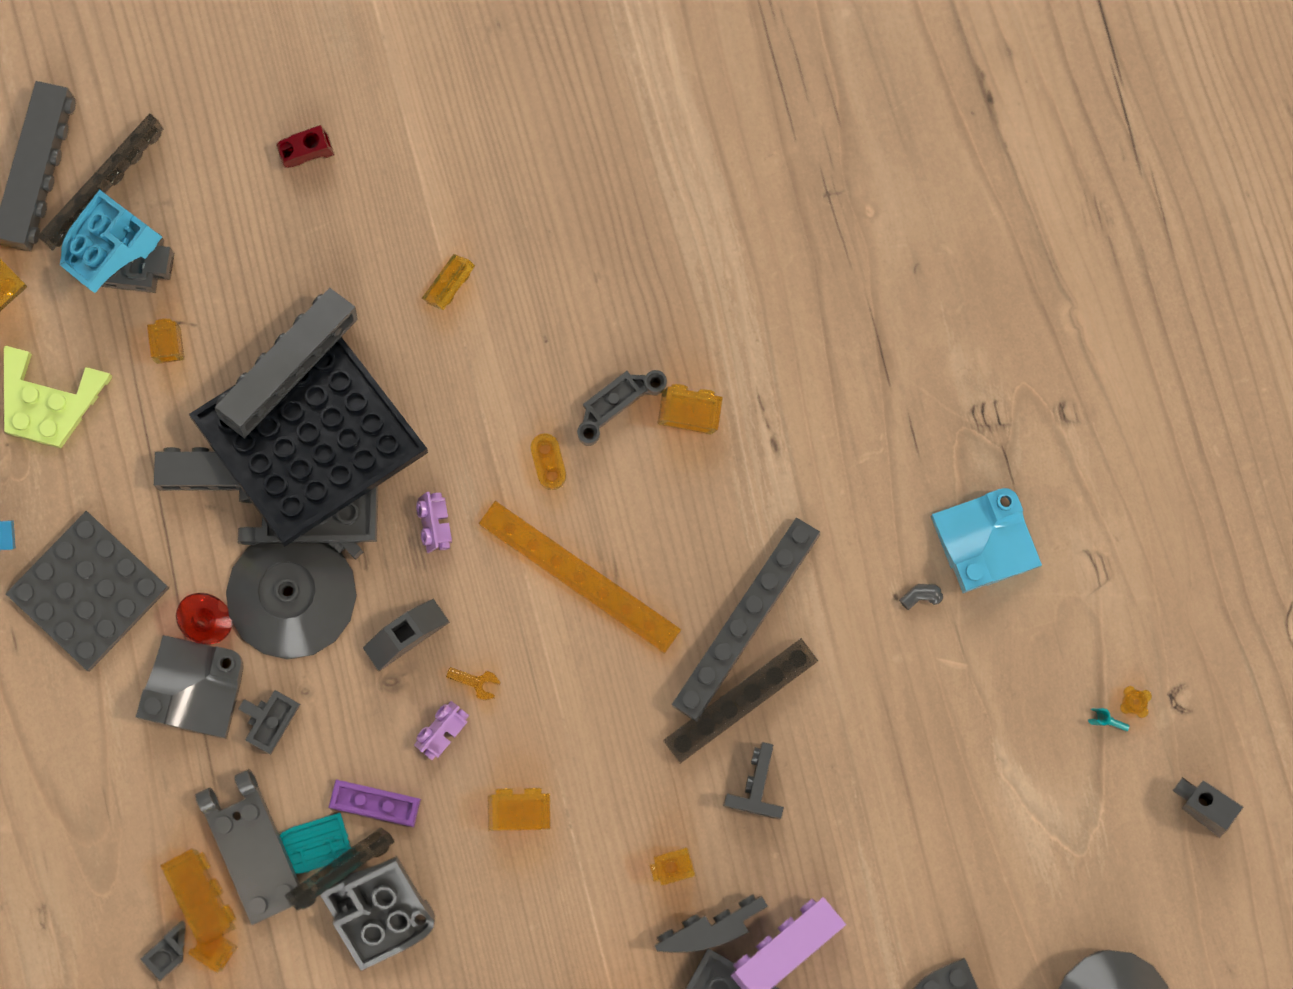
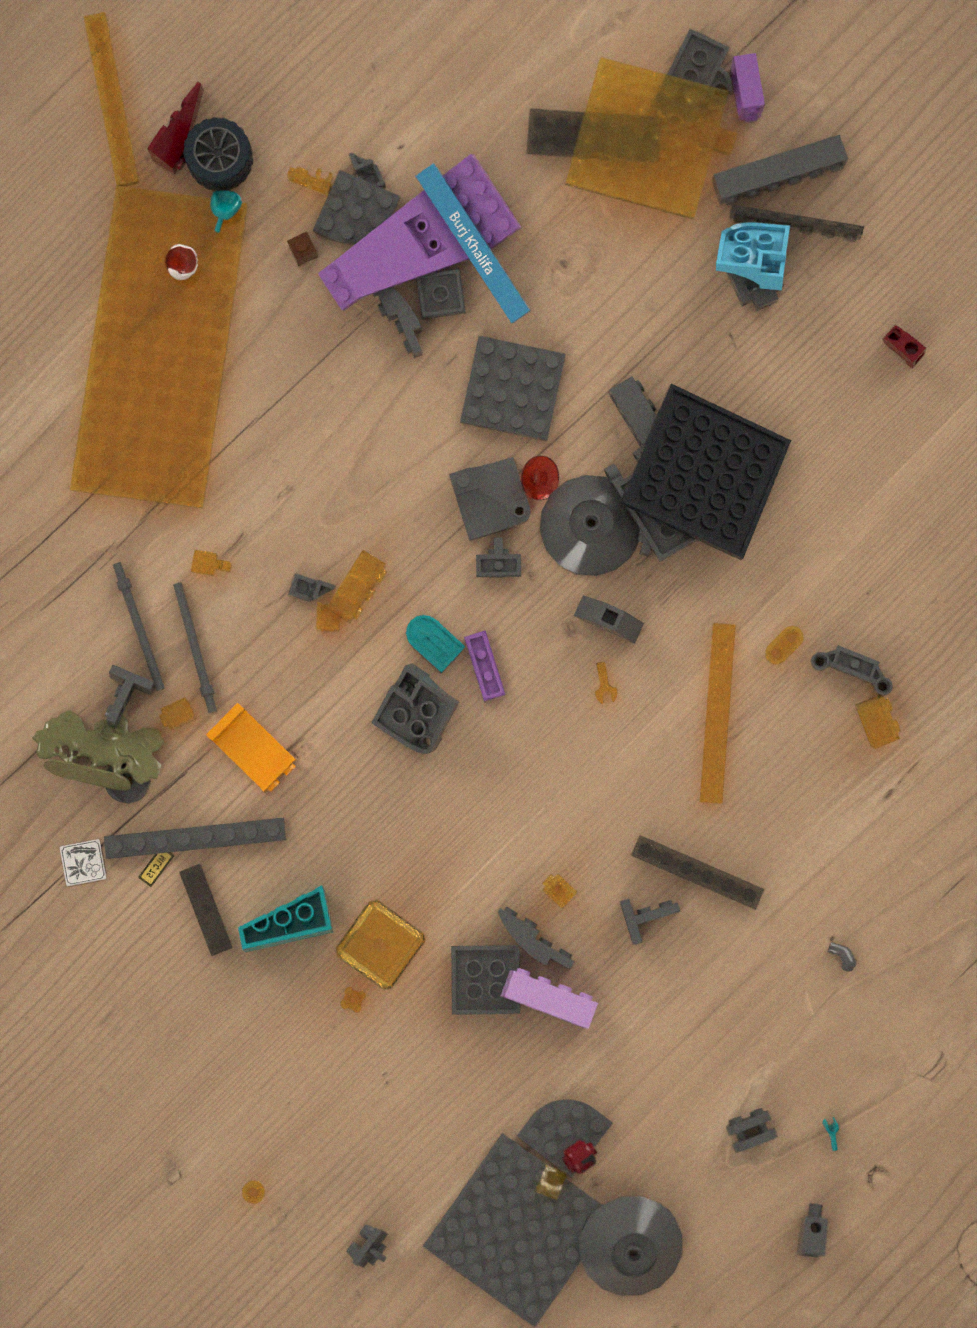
camera: 65 degrees right, 5 degrees up
(41, 411) = (614, 280): yellowish green wing -> none
(165, 341) = (712, 335): clear yellow brick -> none
(251, 849) = (407, 604): dark grey hinge -> none
(286, 362) = (746, 427): dark grey brick -> none
(372, 846) = (401, 656): clear smoke plate -> none
(430, 510) = (687, 596): lavender hinge -> none
(446, 720) = (551, 678): lavender hinge -> none
(448, 282) = (868, 502): clear yellow plate -> none
(518, 811) = (535, 765): clear yellow brick -> none
(746, 619) = (755, 844): dark grey plate -> none
(986, 540) = (908, 979): medium azure slope -> none
(1045, 818) = (738, 1125): none -> dark grey brick
(1129, 707) = (852, 1150): clear yellow plate -> none

